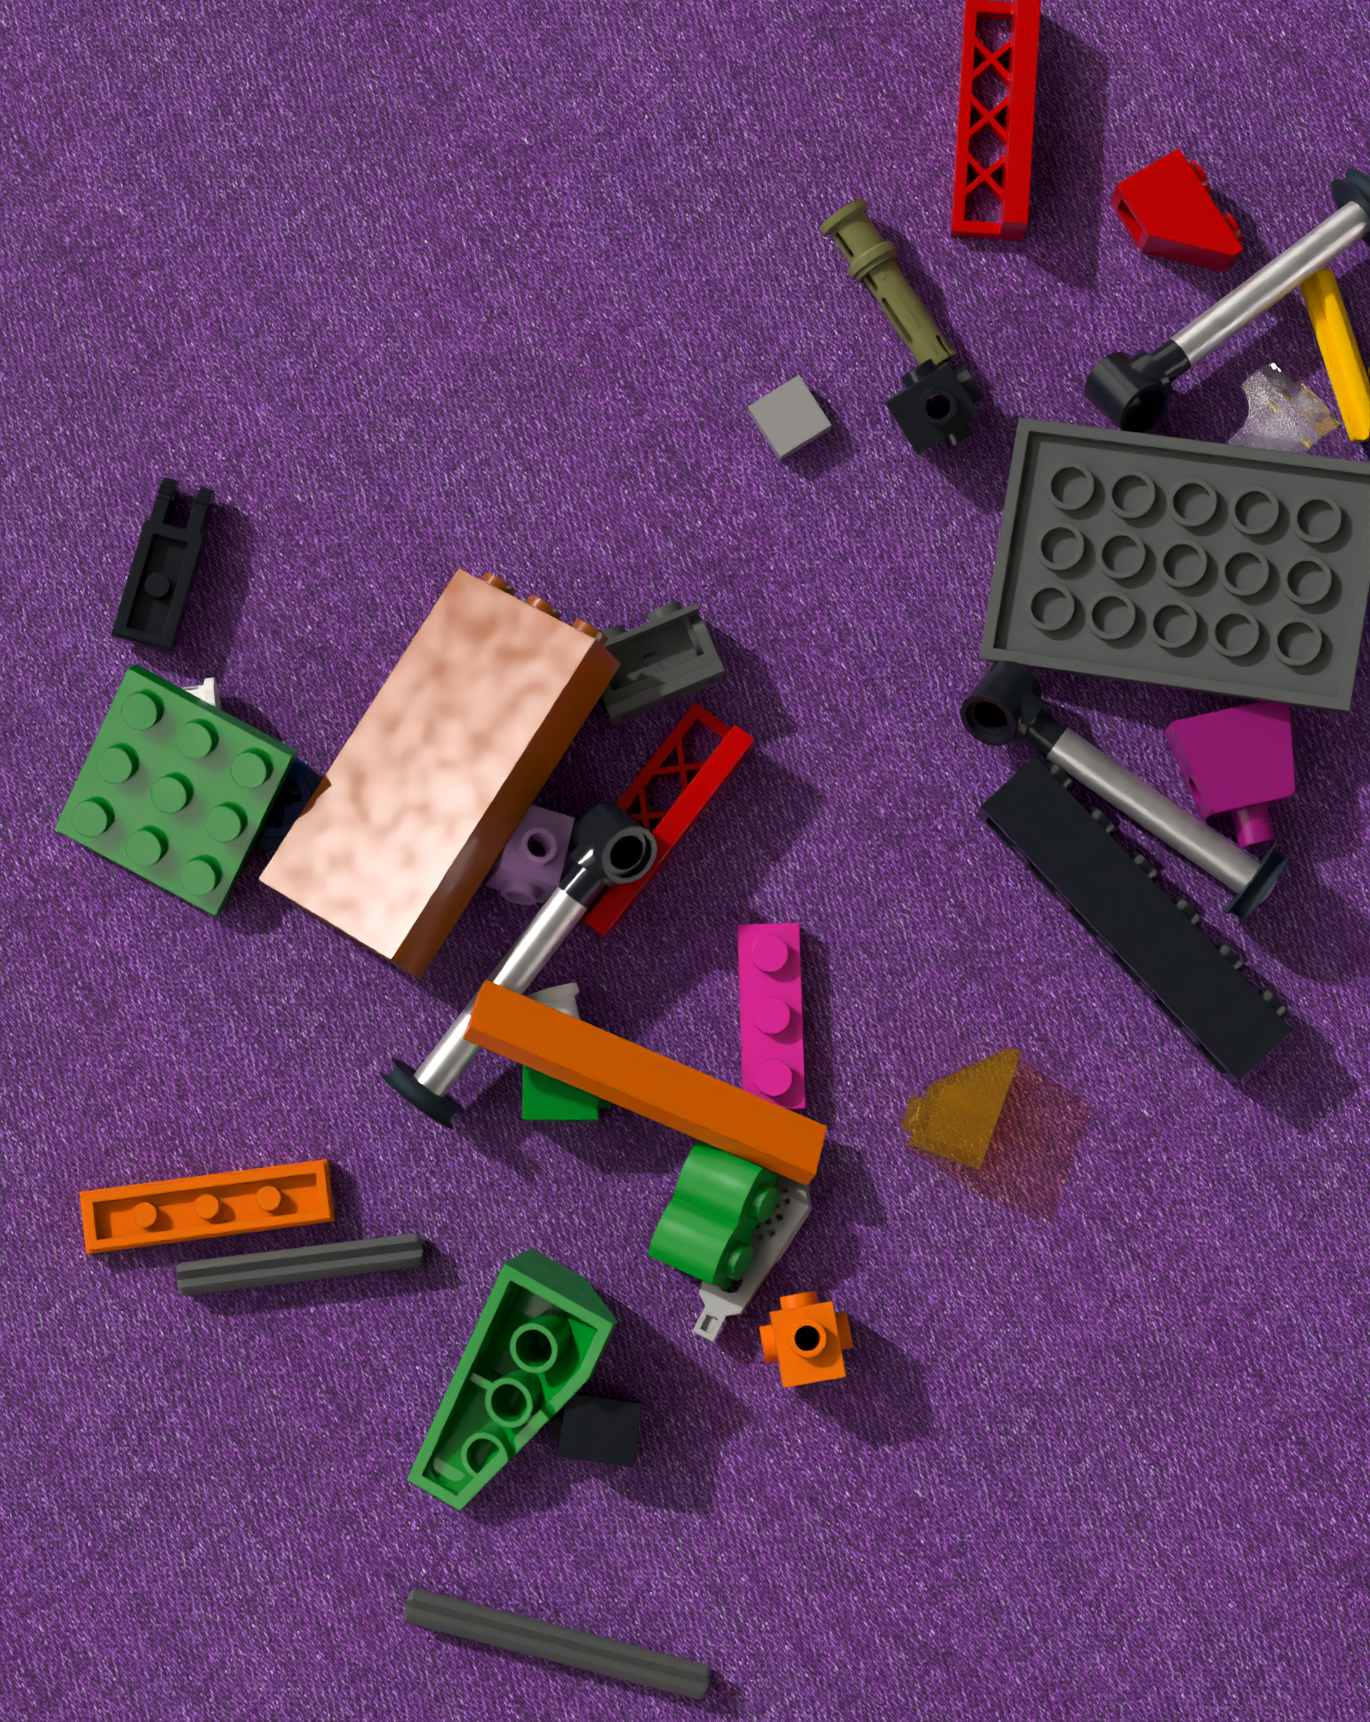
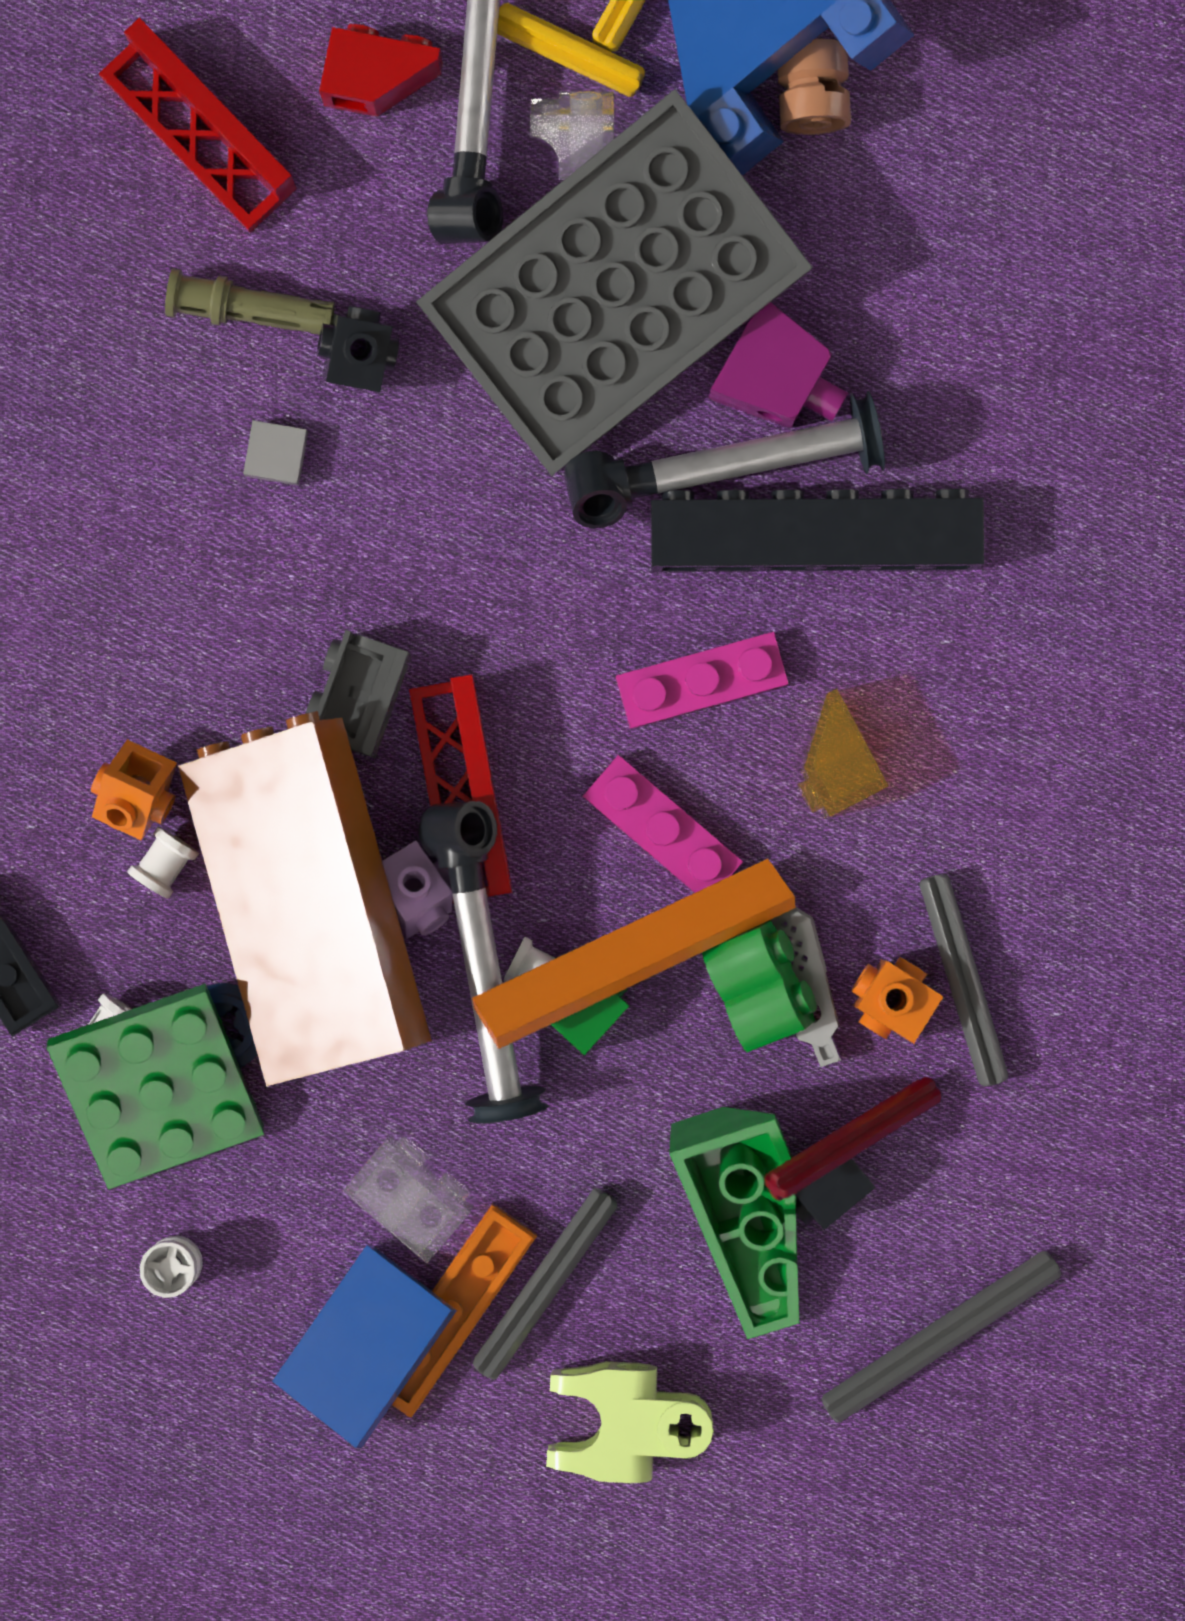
camera: 45 degrees left, 5 degrees up
(29, 929) = (163, 1271): none -> white wheel
(112, 1159) = (364, 1346): none -> blue tile
(249, 1443) = (632, 1422): none -> yellowish green piece
(272, 1083) = (410, 1197): none -> clear brick
(367, 629) = (163, 862): none -> white bush
(405, 551) = (134, 790): none -> orange brick
(657, 1409) = (852, 1138): none -> dark red axle
(876, 1386) = (964, 980): none -> dark grey axle
(924, 937) = (701, 680): none -> dark pink plate

